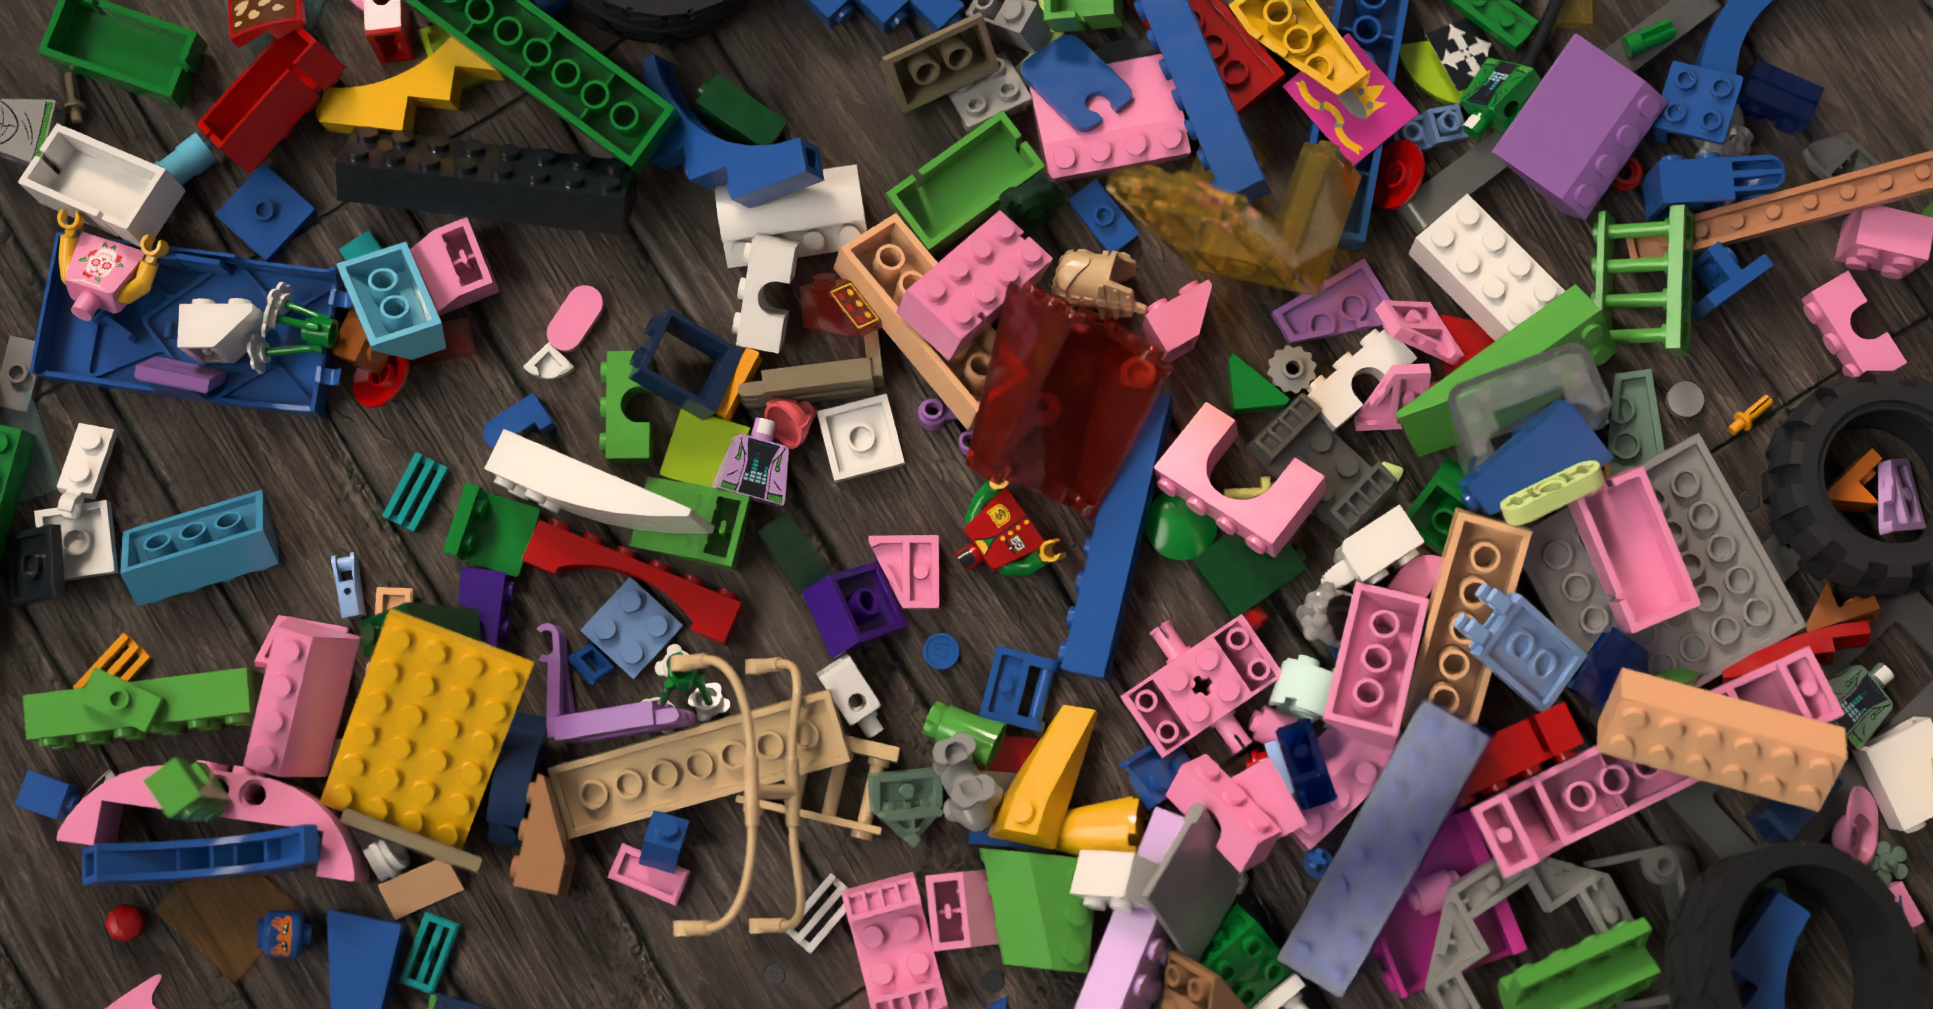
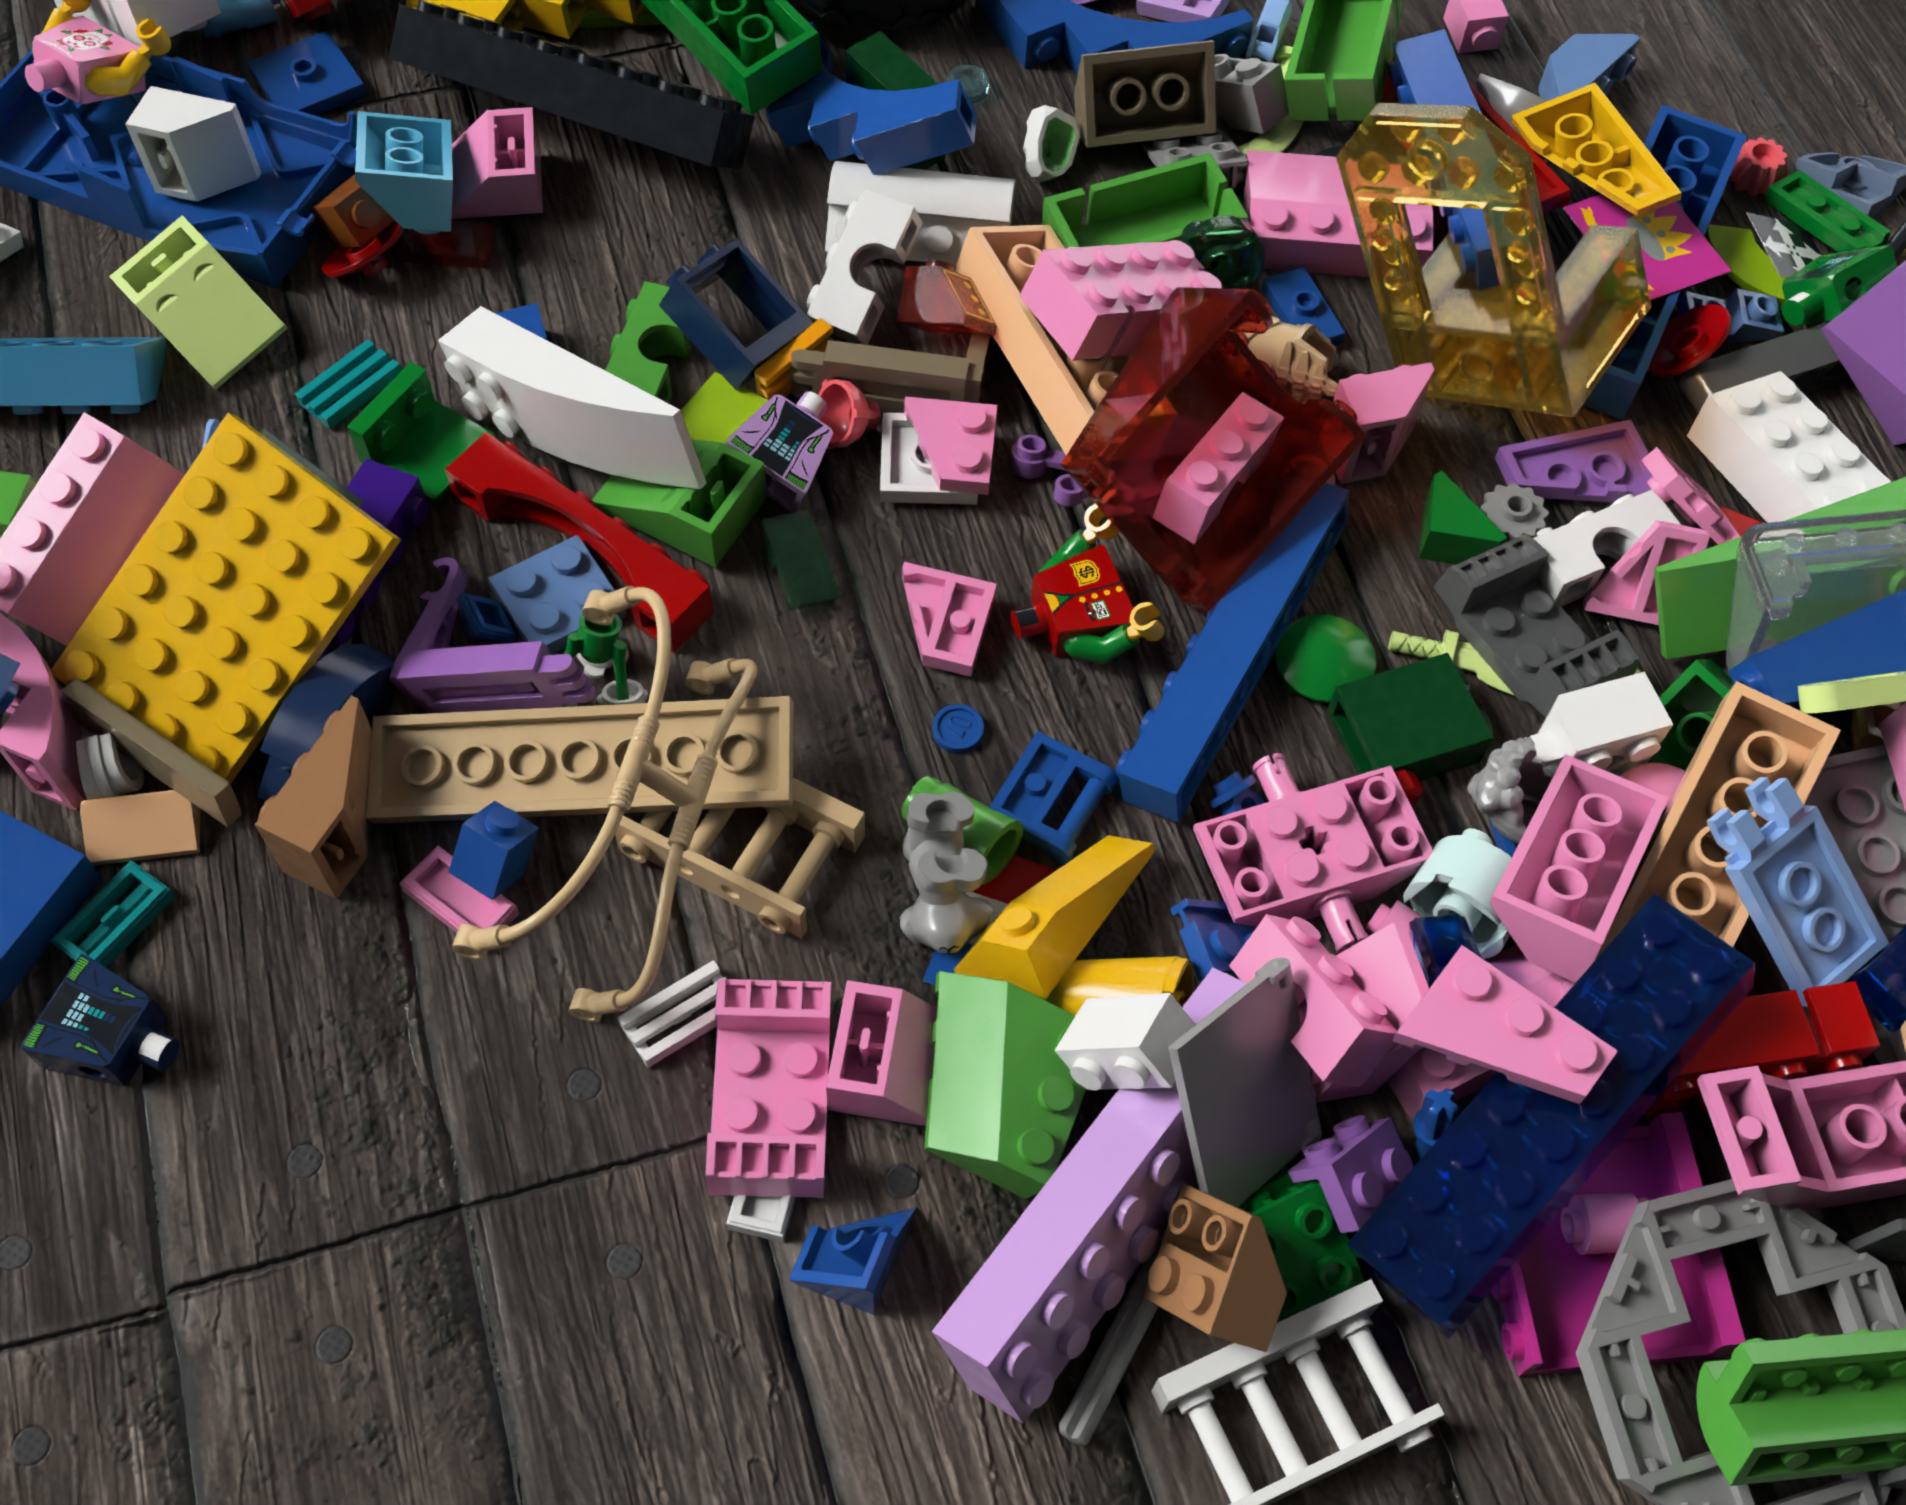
camera: 10 degrees right, 20 degrees down
(180, 374) = (116, 165): medium lavender tile -> none
(284, 465) = (198, 302): none -> yellowish green slope
(319, 331) = (275, 146): plant -> none
(549, 364) = (570, 296): white tile -> none
(575, 319) = (621, 258): bright pink tile -> none
(790, 65) = (974, 81): none -> clear light blue tile
(845, 680) = (822, 731): white torso -> none
(854, 608) = (856, 640): dark purple slope -> none
(873, 117) = (1050, 142): none -> rock
(877, 425) = (955, 441): none -> bright pink wing
(906, 800) = (851, 890): sand green slope -> none
(1070, 74) = (1295, 157): blue piece -> none
(1074, 414) = (1208, 473): none -> bright pink arch
(1138, 653) = (1234, 792): none -> blue plate
(1264, 520) = (1442, 652): bright pink arch -> none
(1274, 903) = (1356, 1168): none -> medium lavender bracket
(1343, 819) = (1500, 1025): none -> bright pink wing

